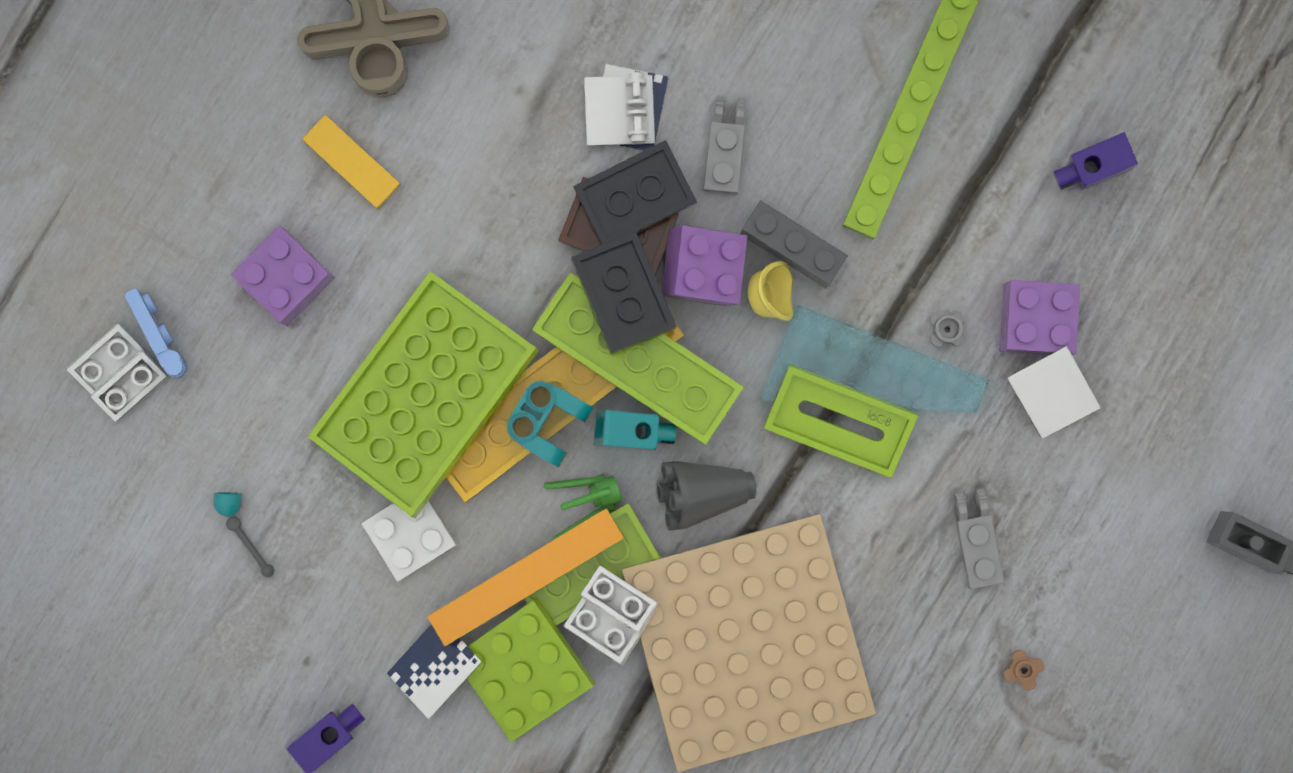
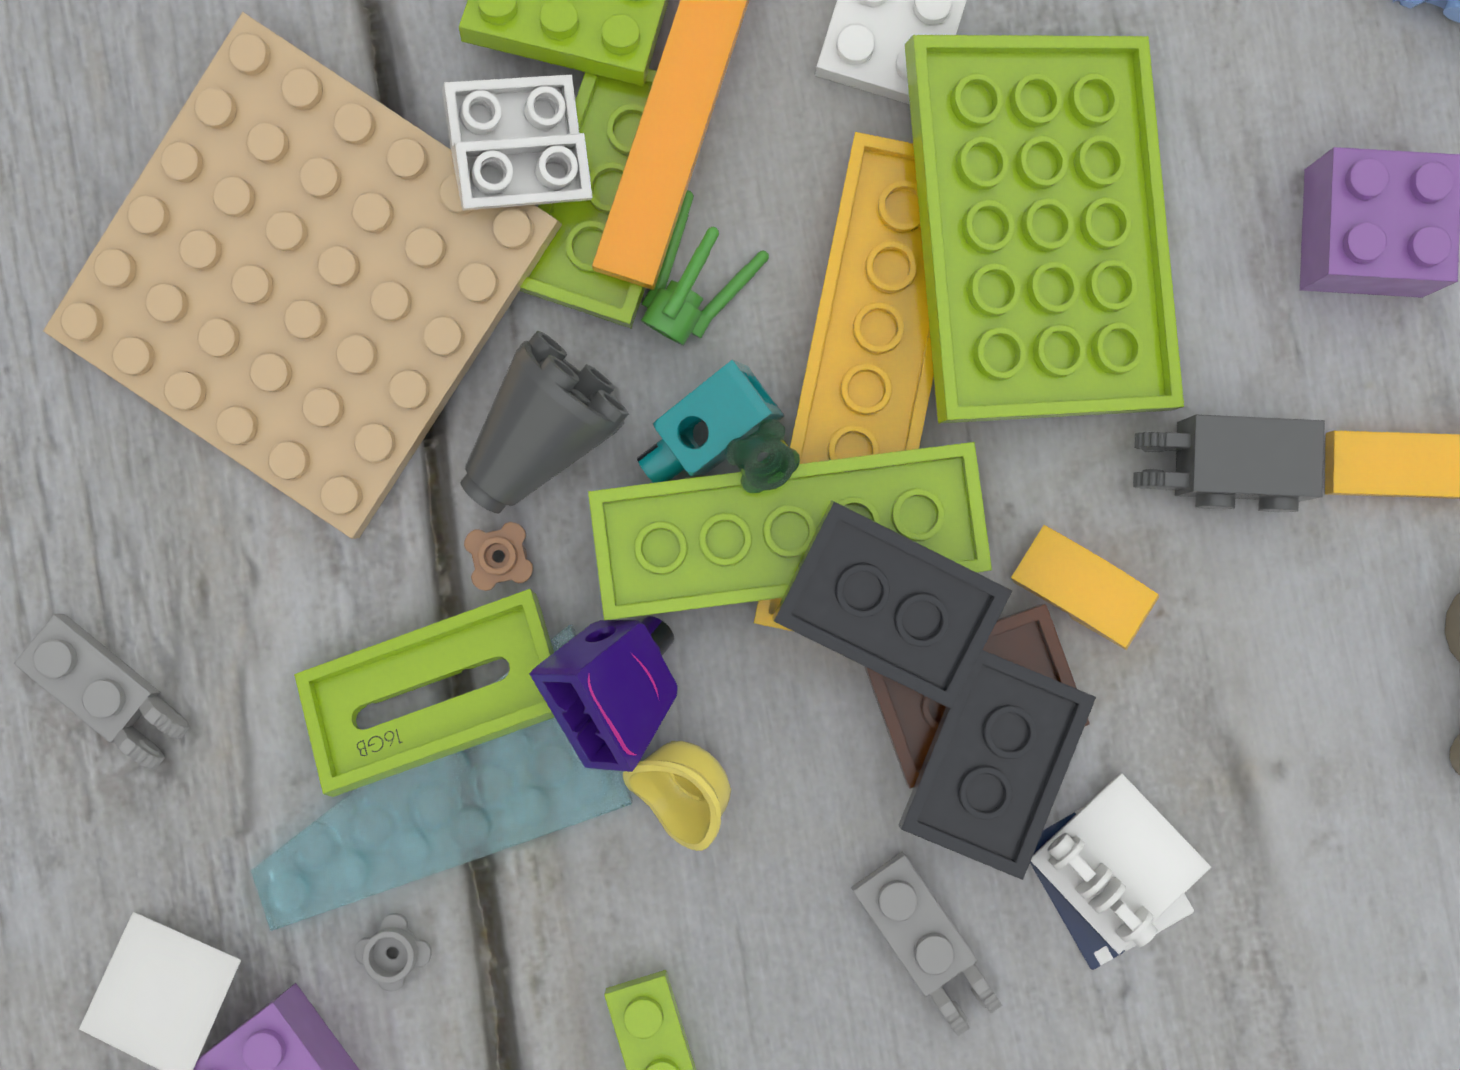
camera: 140 degrees right, 0 degrees up
(428, 230) = (1239, 459): none -> dark grey hinge
(535, 232) = (1085, 587): none -> yellow slope
(539, 417) = (885, 327): teal piece -> none
(625, 388) = (771, 471): none -> clear green plate
(704, 266) = (810, 746): medium lavender brick -> none
(763, 444) = (515, 563): none -> medium nougat plate
(765, 357) = (610, 690): none -> dark purple torso
(793, 244) = (708, 886): dark grey brick -> none

